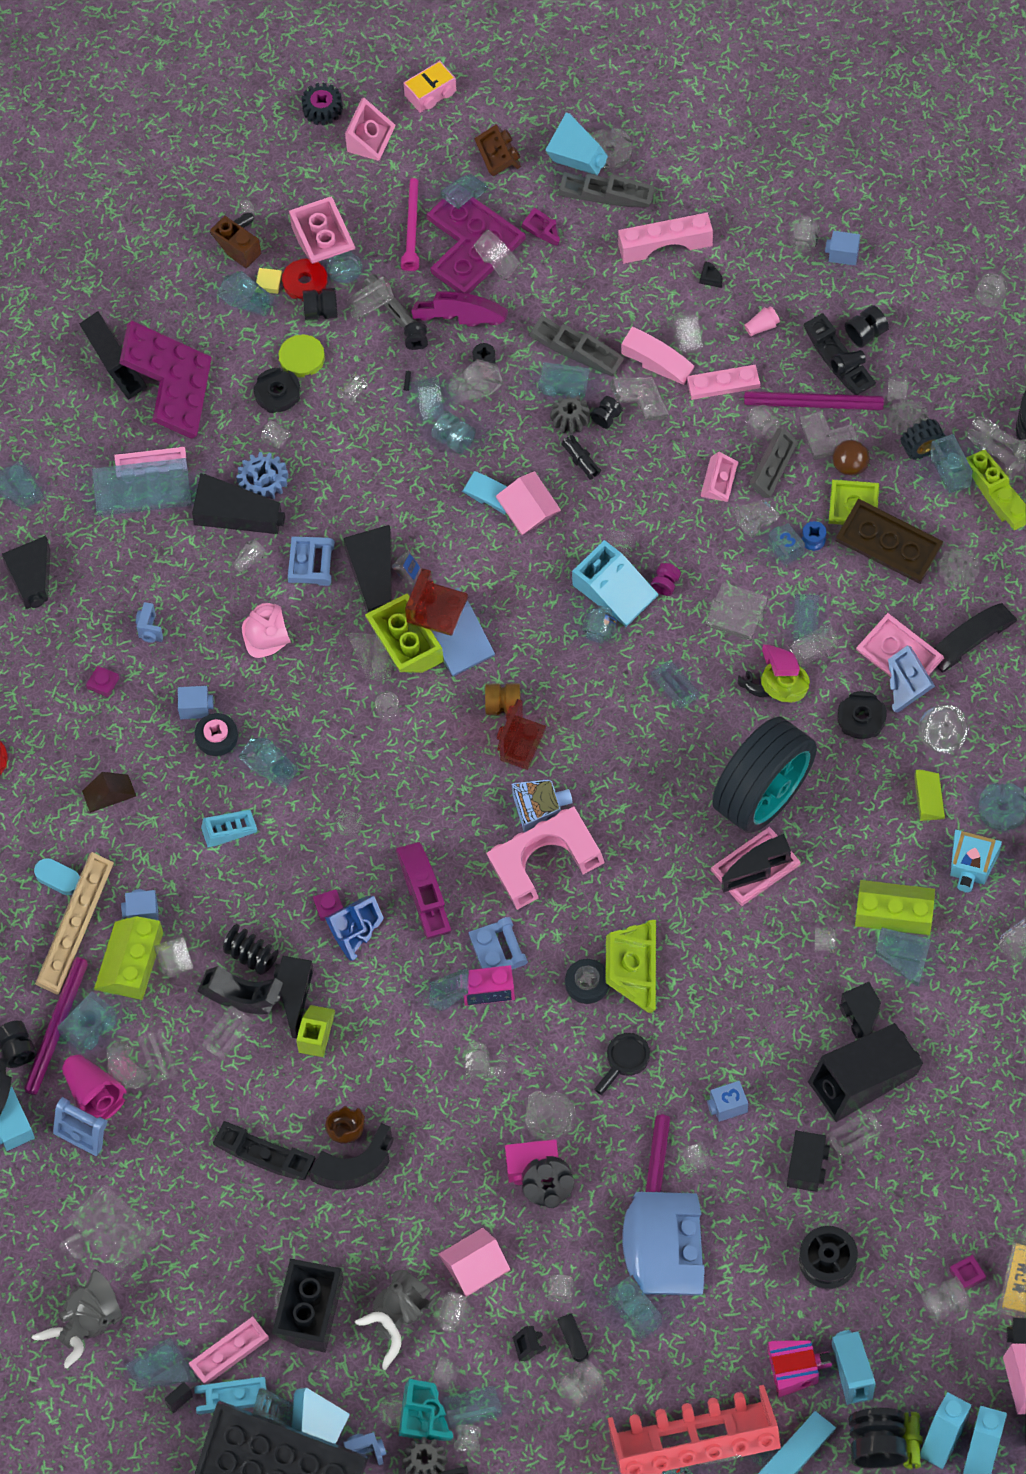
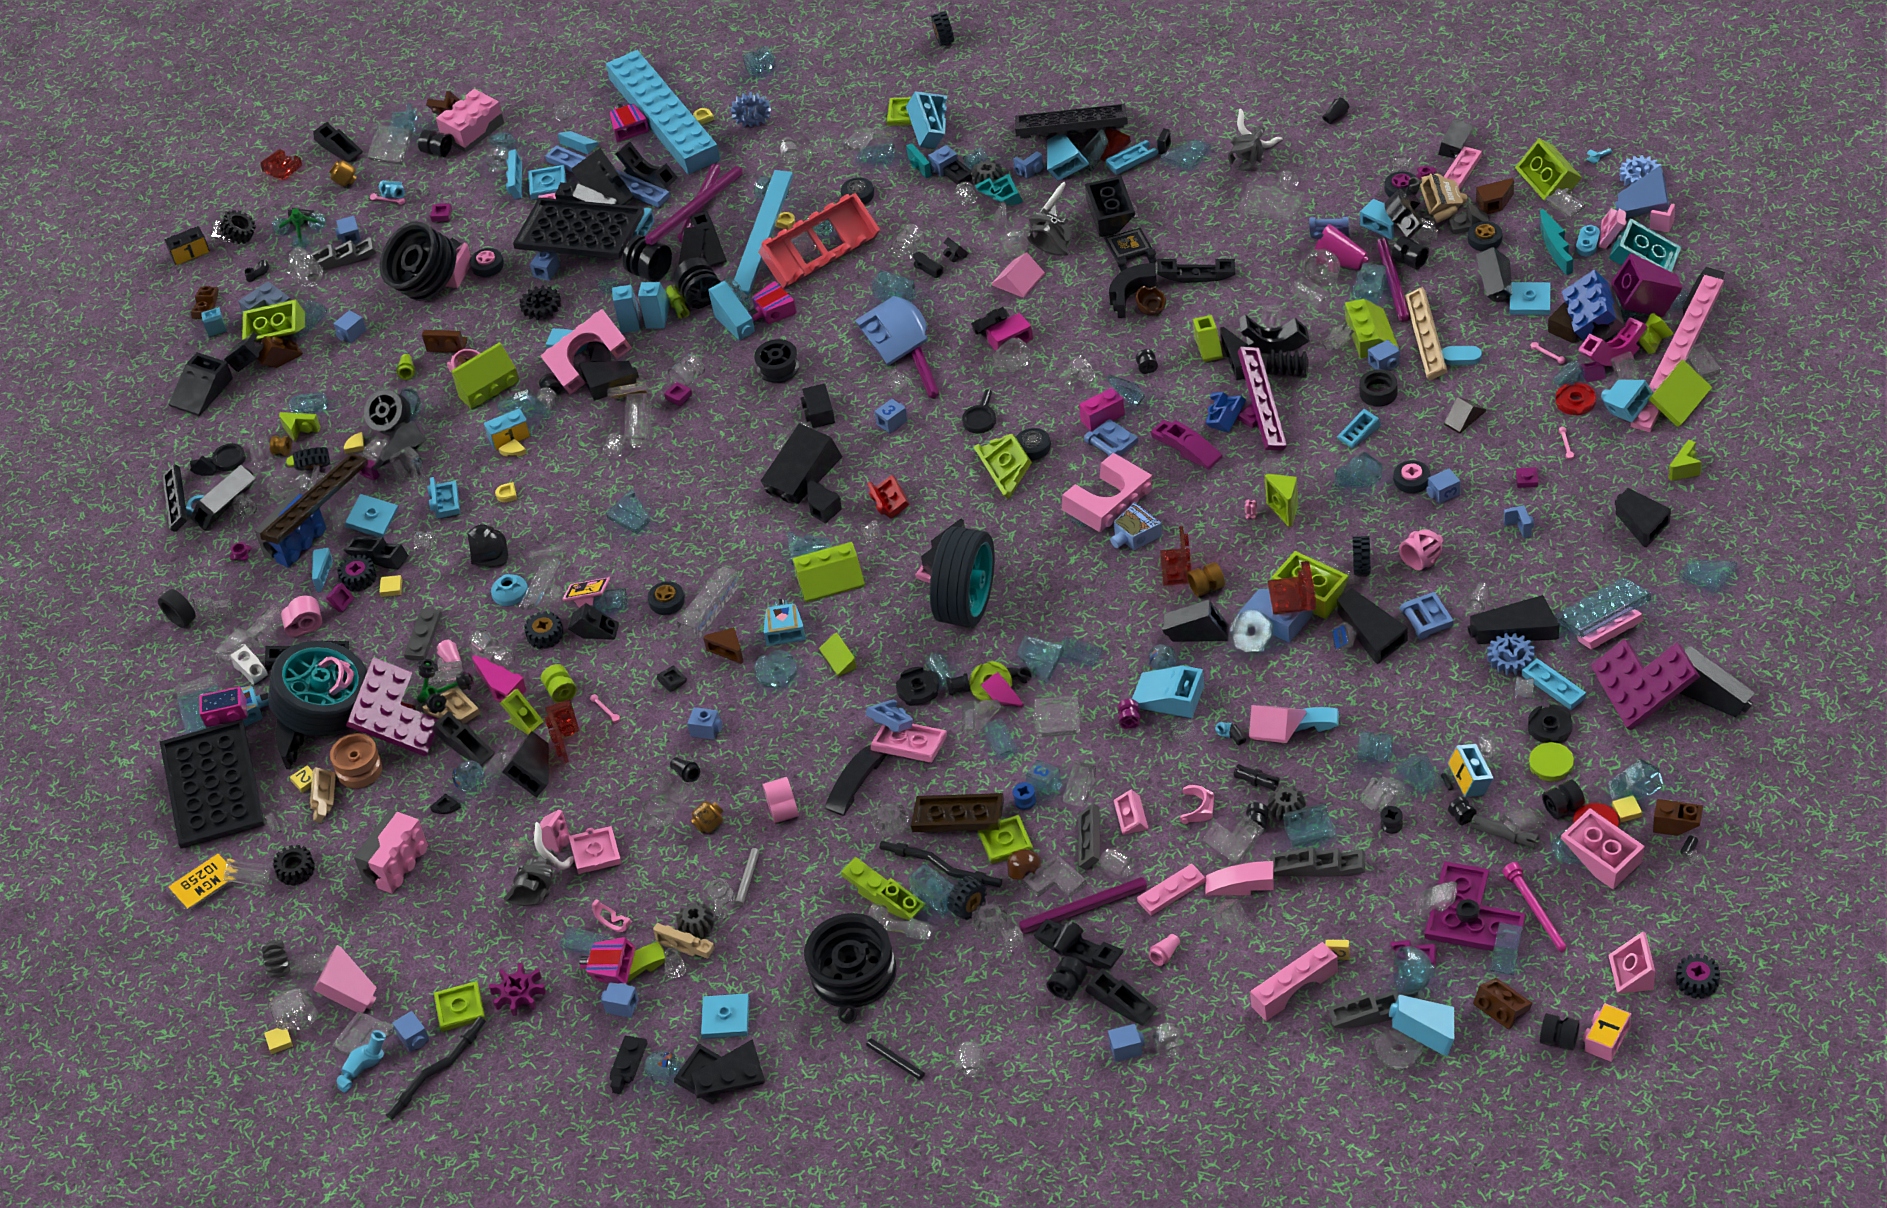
camera: 160 degrees right, 15 degrees down
(25, 725) = (1569, 455): none -> bright pink hinge
(178, 886) = (1378, 376): none -> black tyre
(228, 1351) = (1148, 174): bright pink plate -> none
(244, 427) = (1554, 684): none -> medium azure plate
(309, 902) = (1262, 398): none -> plate
(318, 1240) = (1129, 245): none -> black flag
(332, 646) = (1361, 555): none -> black wheel
(364, 752) = (1282, 496): none -> lime slope
(383, 702) = (1297, 540): clear wheel -> none
(384, 364) = (1470, 770): none -> medium azure brick
(399, 1036) = (1146, 361): none -> black wheel
(405, 770) = (1250, 509): none -> bright pink piece
(469, 100) = (1559, 1031): none -> black wheel
(469, 309) = (1437, 843): magenta slope -> none
(472, 1406) = (972, 209): clear light blue panel -> none
(474, 231) = (1467, 910): none -> black tile
(493, 611) = (1263, 627): none -> clear light blue plate
(545, 647) = (1196, 624): none -> black slope
(556, 197) = (1413, 969): none -> clear light blue cylinder
(560, 1288) = (950, 281): clear wheel -> none
(576, 522) = (1231, 731): none -> arm
(609, 253) = (1339, 947): none -> light yellow tile
(647, 445) = (1205, 811): none -> bright pink helmet
(710, 276) = (1235, 975): black tile -> none
(719, 690) = (1040, 656): none -> clear light blue wing
(784, 980) = (888, 496): none -> red bracket
(819, 695) = (958, 684): none -> black bush
(826, 293) = (1120, 997): none -> black slope
(830, 727) = (938, 664): none -> clear light blue cone
(836, 1388) = (735, 287): none -> clear light blue slope
(942, 728) = (848, 690): clear cylinder -> none
(959, 533) = (902, 849): none -> black bar

